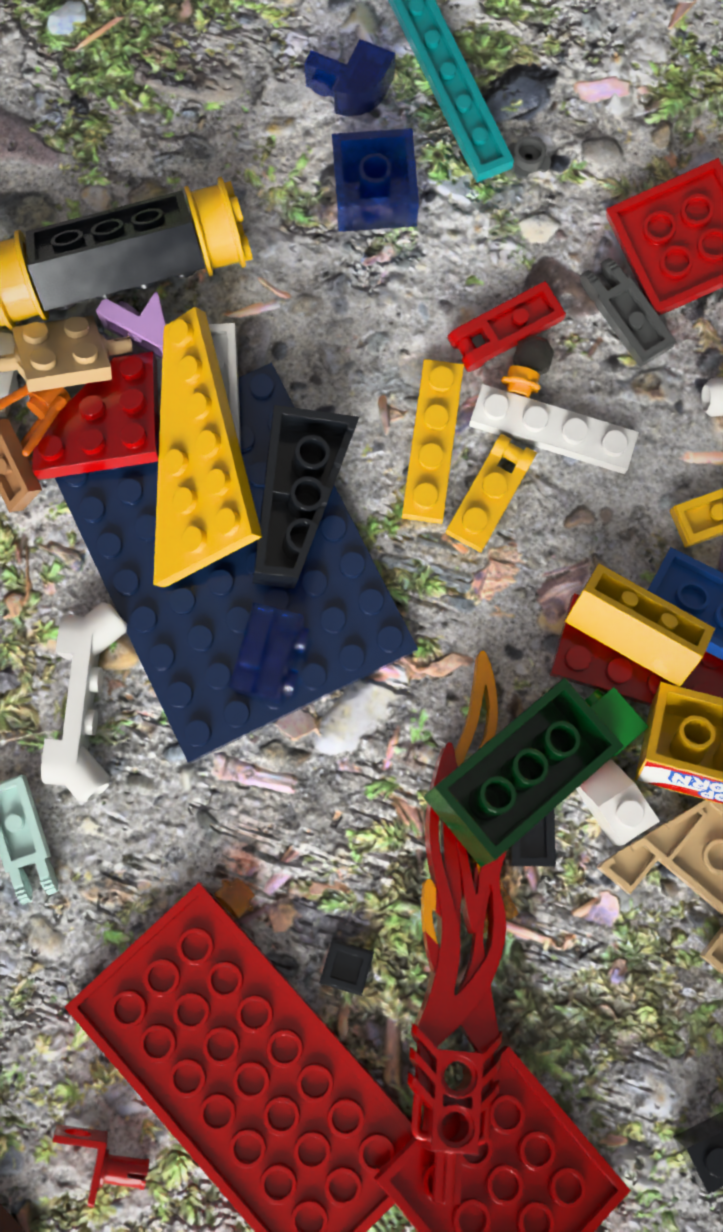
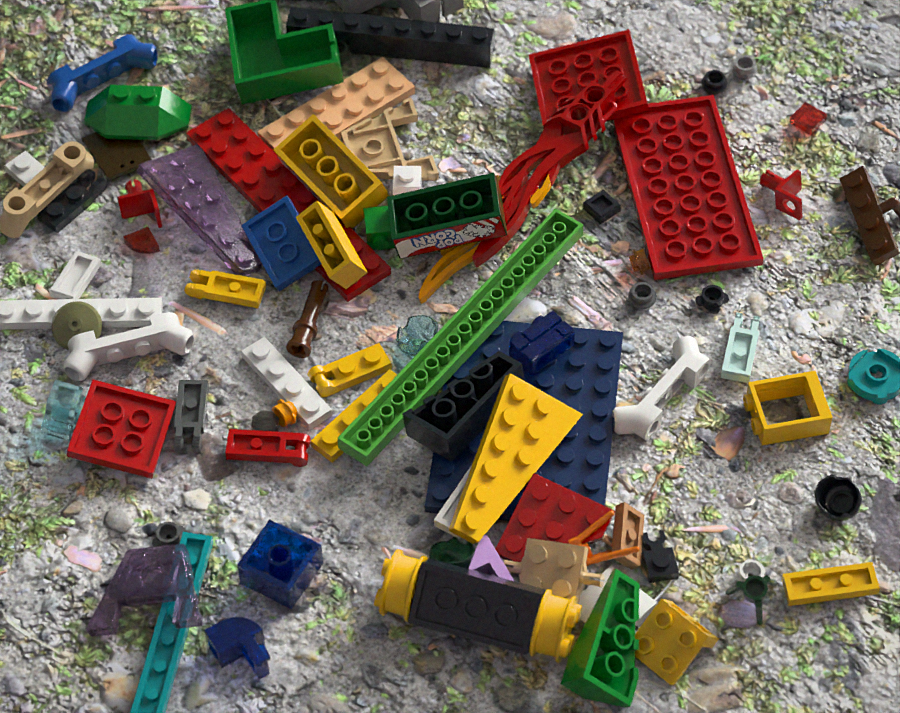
camera: 145 degrees left, 25 degrees down
(94, 906) = (715, 293): none -> black plate
(186, 836) = (641, 290): none -> dark grey plate
(191, 293) = (452, 552): none -> clear green hair
(376, 620) = (460, 337): none -> bright green piece
(438, 580) = (416, 334): none -> clear light blue hair
(497, 89) = (148, 578): none -> clear purple wing
(587, 511) = (305, 328): none -> reddish brown pin

